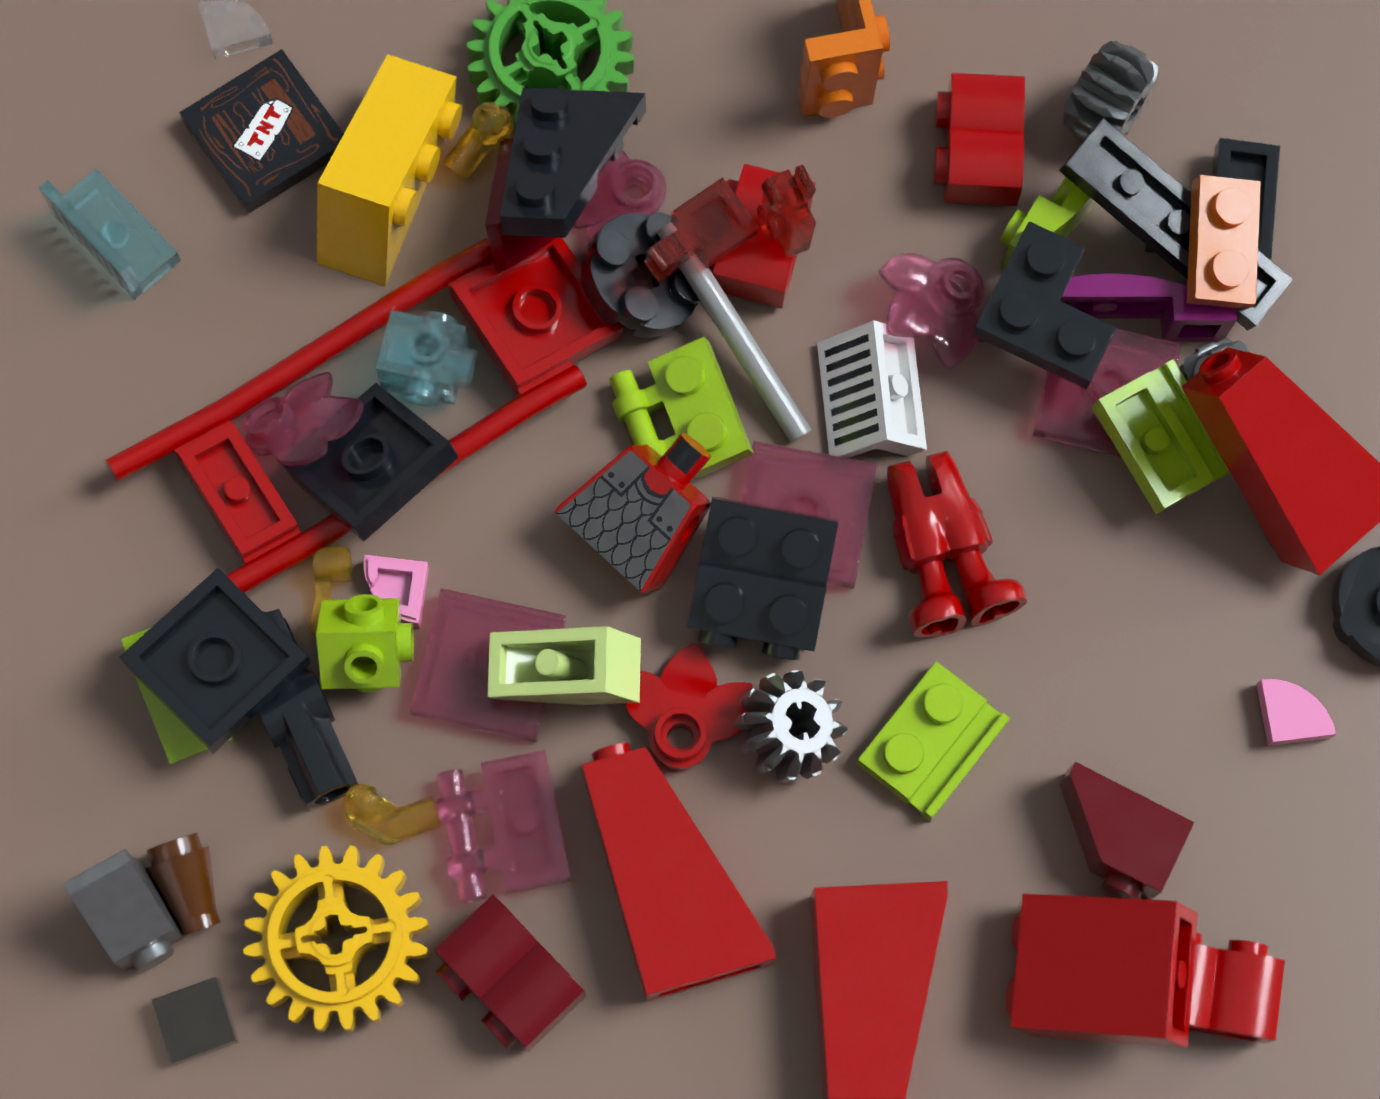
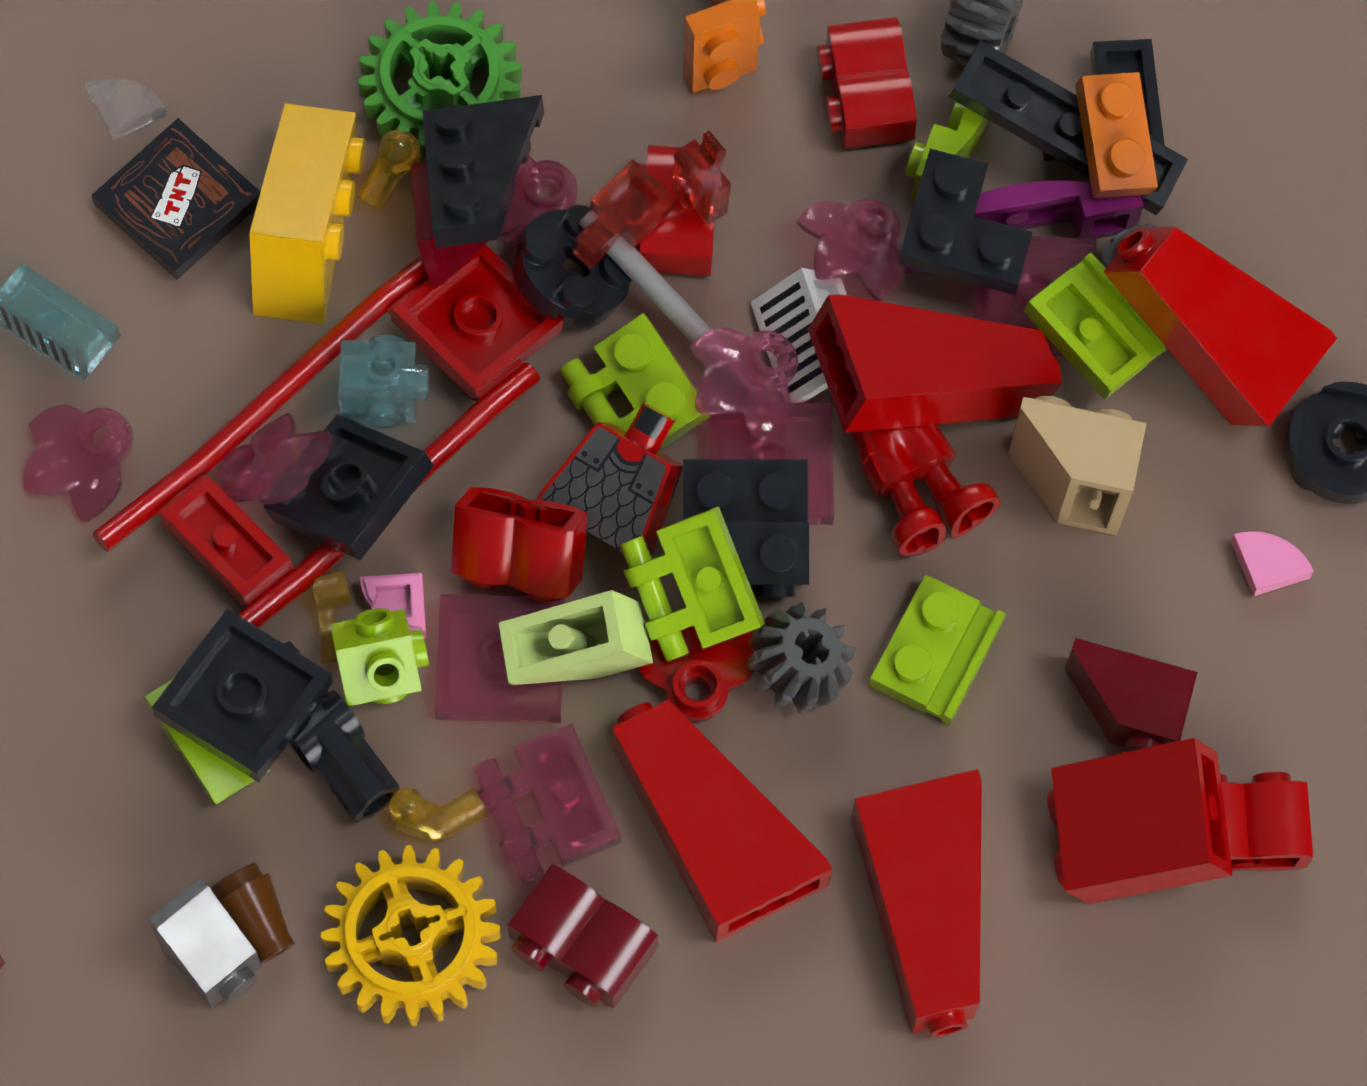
camera: 10 degrees left, 5 degrees down
(102, 380) = (71, 461): none -> clear pink plate
(195, 1021) = (290, 1039): clear smoke tile -> none
(528, 552) = (518, 543): none -> red brick
(710, 630) = (708, 578): none -> lime plate
(787, 426) = (740, 380): none -> clear pink plate
(979, 448) = (925, 366): none -> red slope
(1116, 576) = (1078, 460): none -> tan slope

